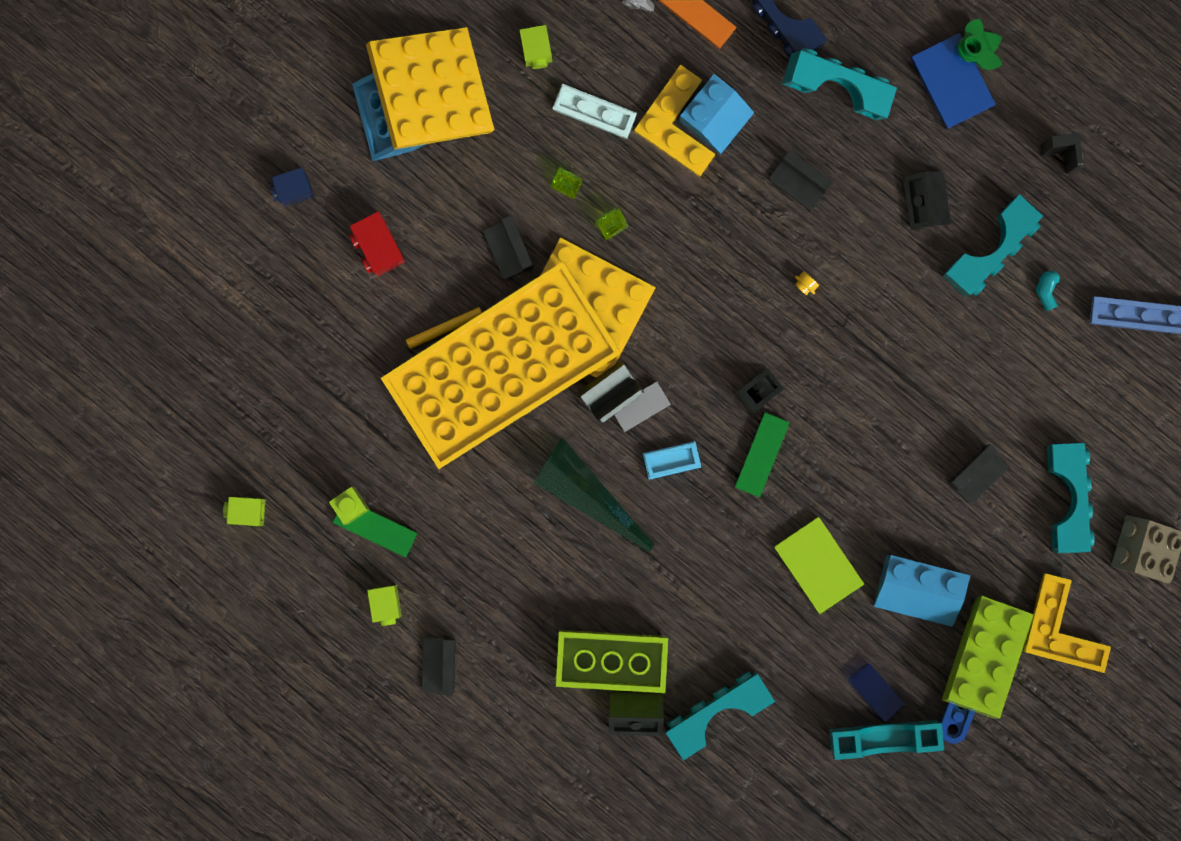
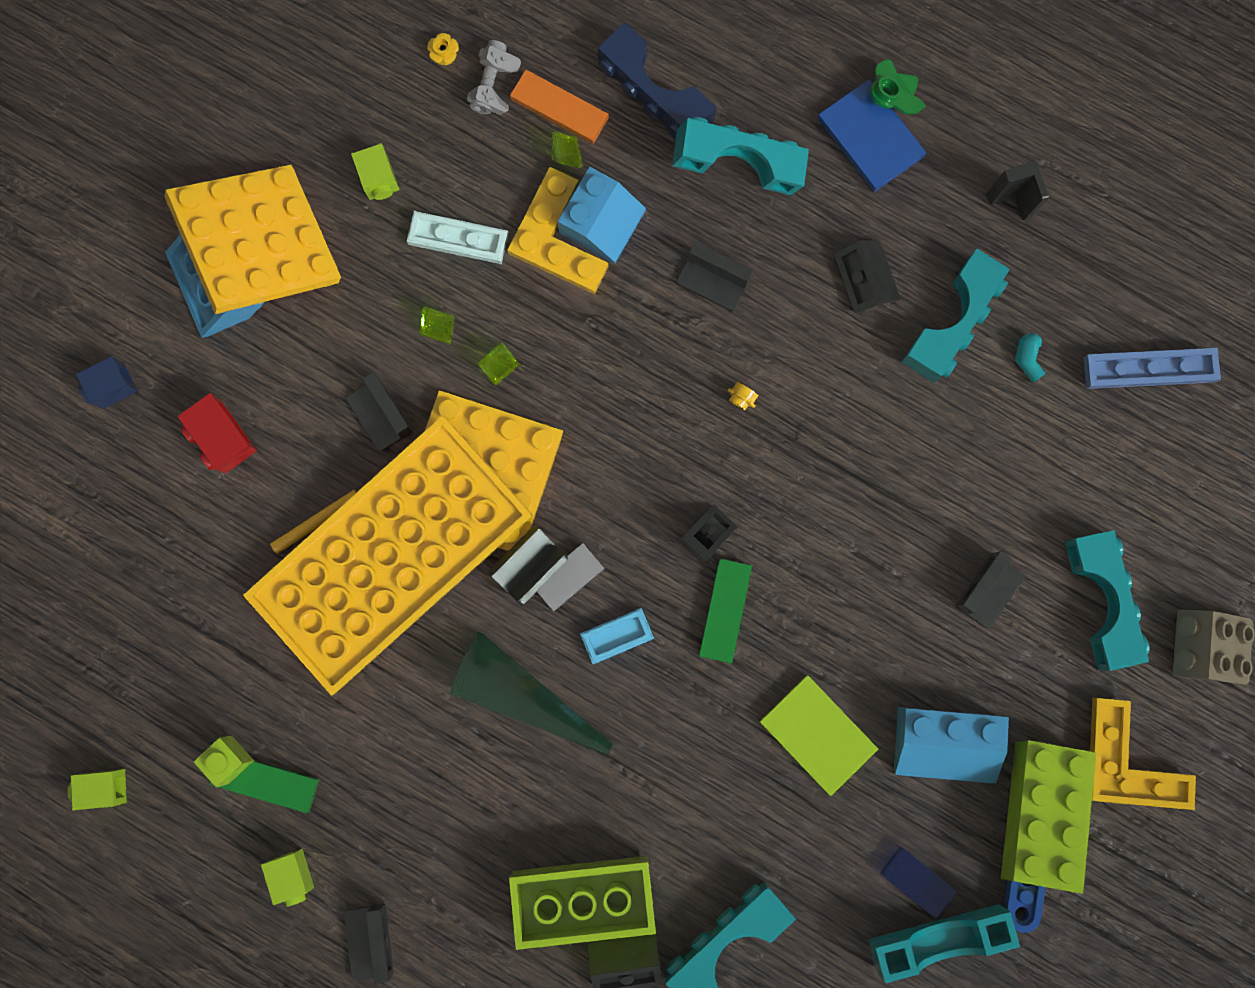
camera: 15 degrees left, 5 degrees down
(696, 52) = (566, 150): none -> clear neon green slope

